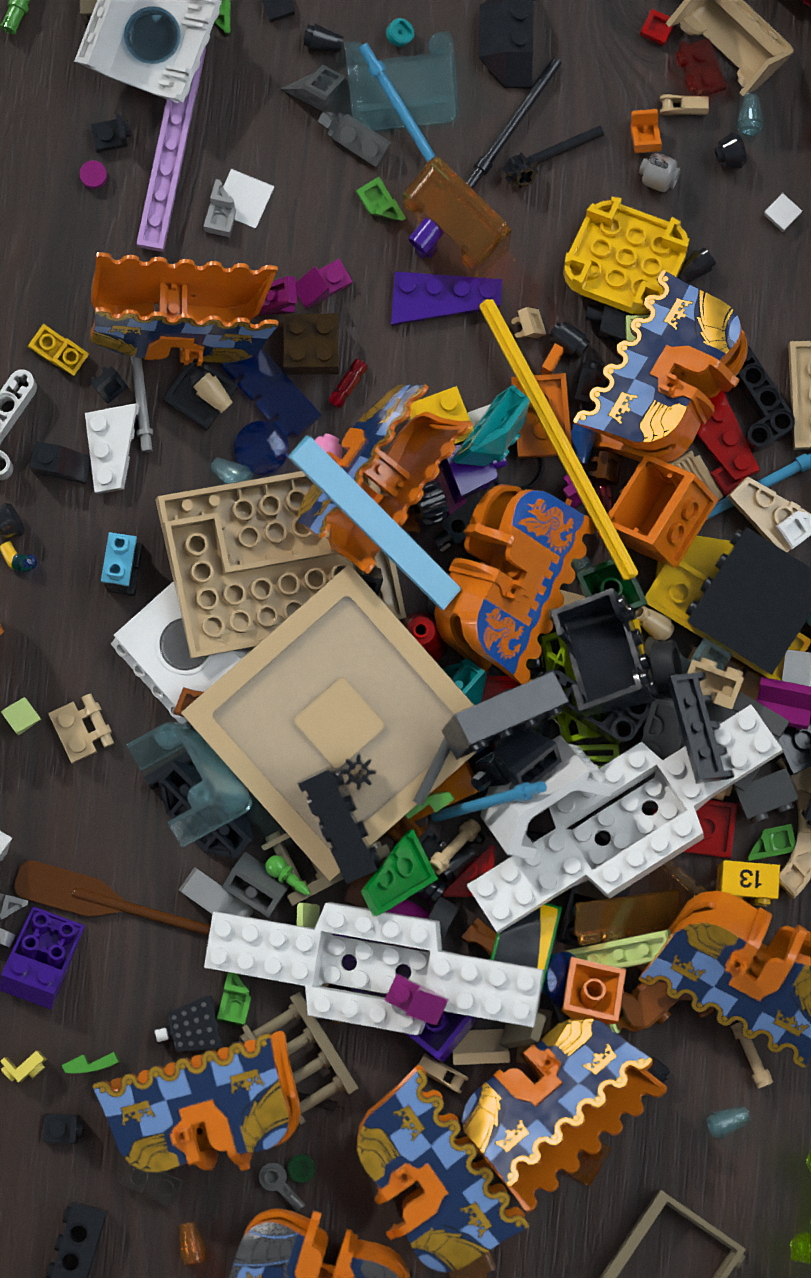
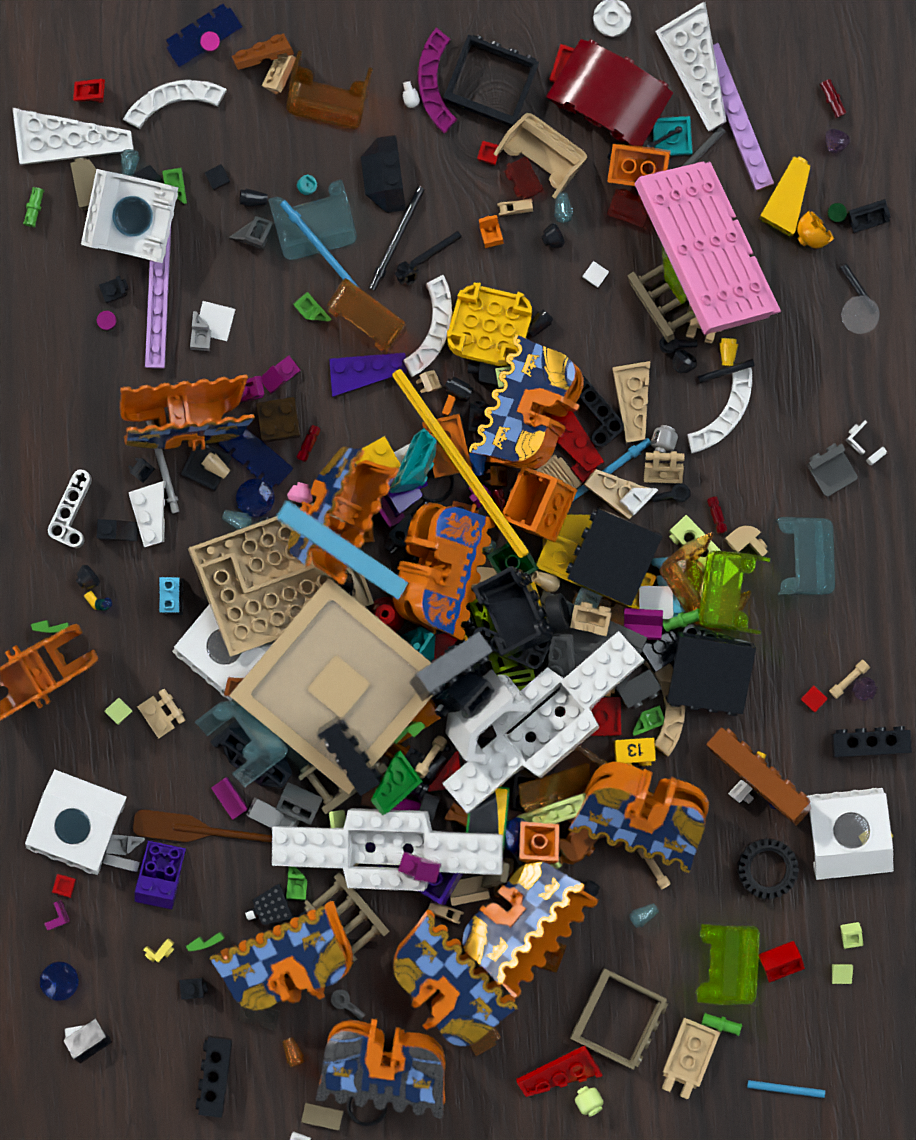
camera: 10 degrees left, 5 degrees up
(58, 350) = (102, 450): yellow slope -> none
(159, 863) = (229, 798): none -> magenta panel
(278, 868) = (311, 790): bright green bar -> none
(301, 1168) = (359, 990): dark green tile -> none
(356, 136) = (287, 265): dark grey hinge -> none
(364, 766) = (360, 713): black gear -> none
(426, 238) = (347, 333): dark purple piece -> none
(432, 506) = (381, 524): black gear -> none
(432, 773) = (407, 712): dark grey bar -> none
(521, 793) = (469, 718): dark azure bar -> none
(551, 260) = (437, 333): none -> white tile
(659, 172) = (504, 259): light grey head -> none
(698, 728) = (583, 653): black hinge -> none

